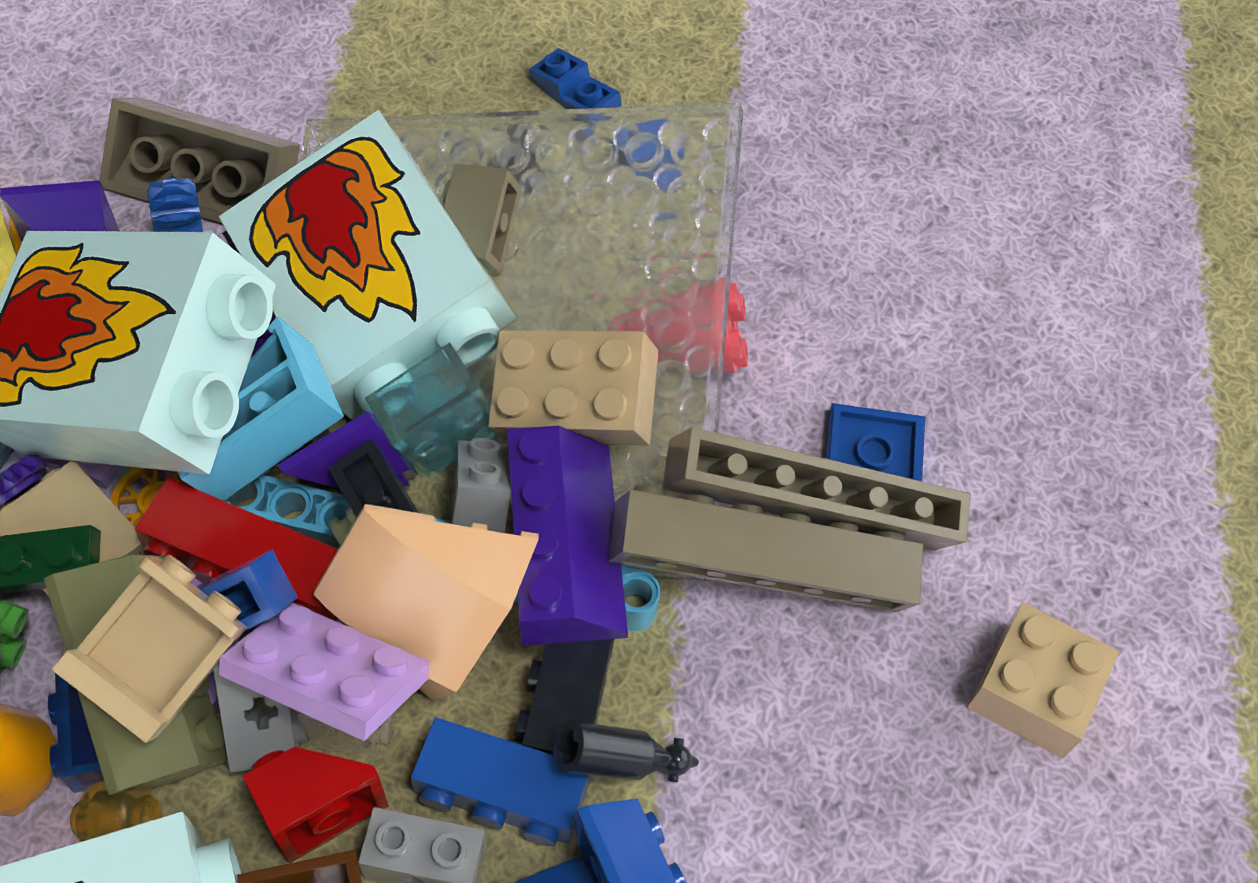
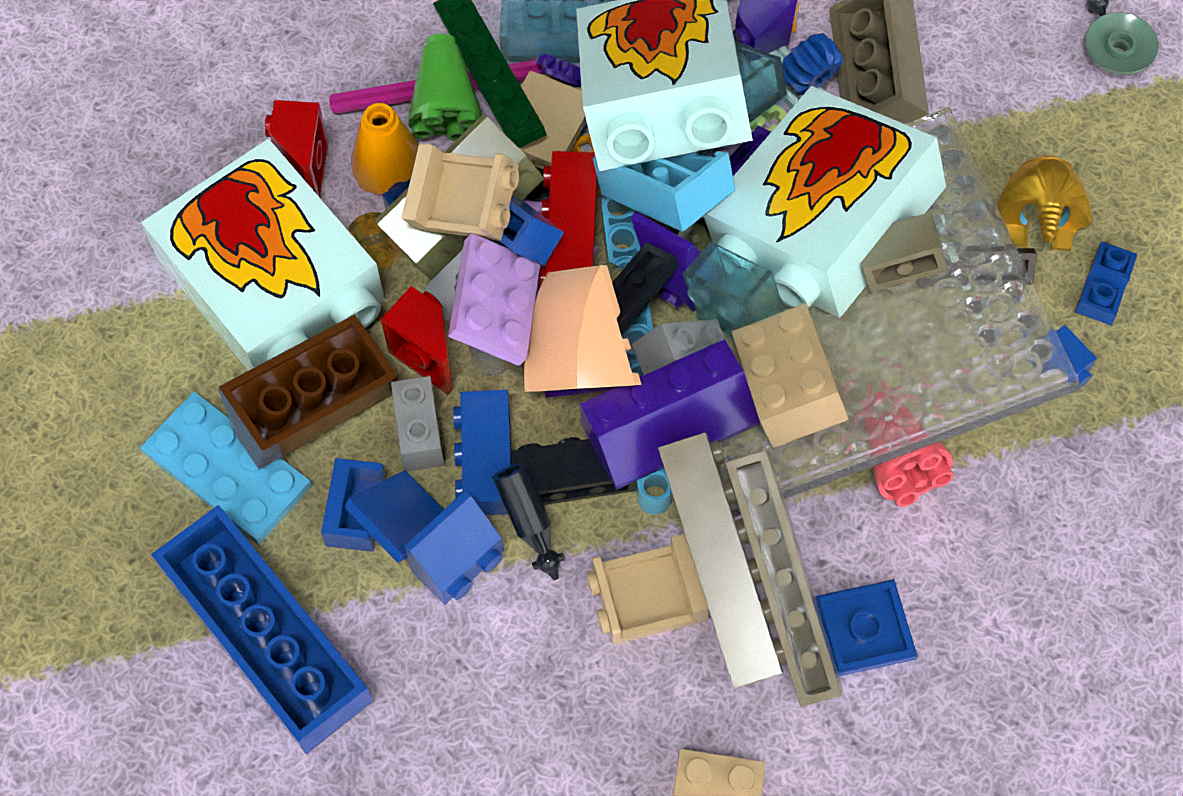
camera: 75 degrees right, 5 degrees up
(455, 69) = (1050, 186): none -> pearl gold piece
(757, 656) = (648, 592): none -> tan panel

